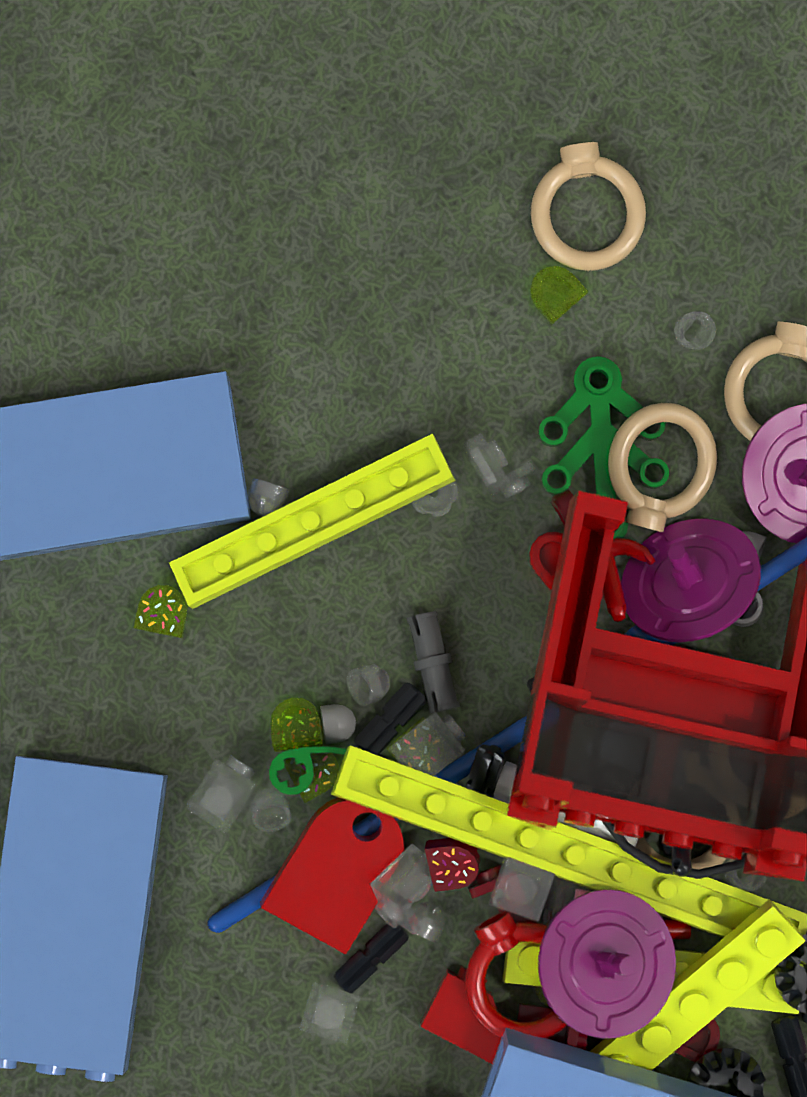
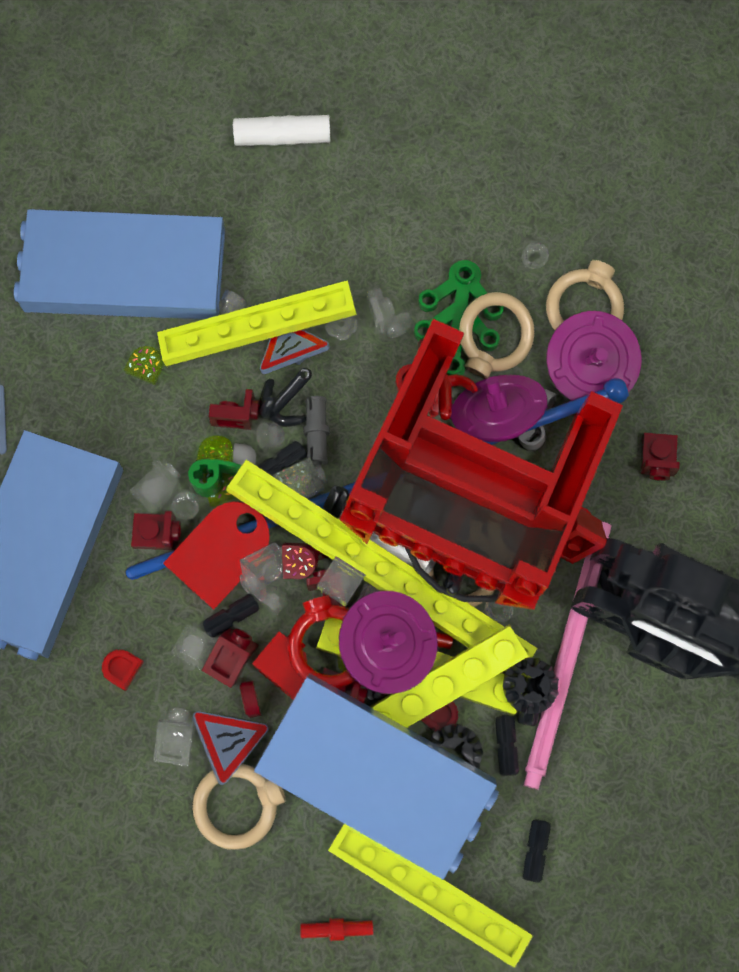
camera: 10 degrees right, 10 degrees down
(234, 1063) = (121, 668): none -> red tile
(236, 857) = (155, 531): none -> dark red bracket
(280, 207) = (281, 130): none -> white axle
(303, 665) = (230, 415): none -> dark red bracket
(362, 645) = (272, 406): none -> black piece
(372, 551) = (291, 349): none -> piece
(385, 1016) = (230, 656): none -> dark red bracket
(426, 1069) = (250, 699): none -> dark red tile
(556, 292) = (449, 217): clear neon green tile -> none
(579, 162) = (481, 140): tan piece -> none

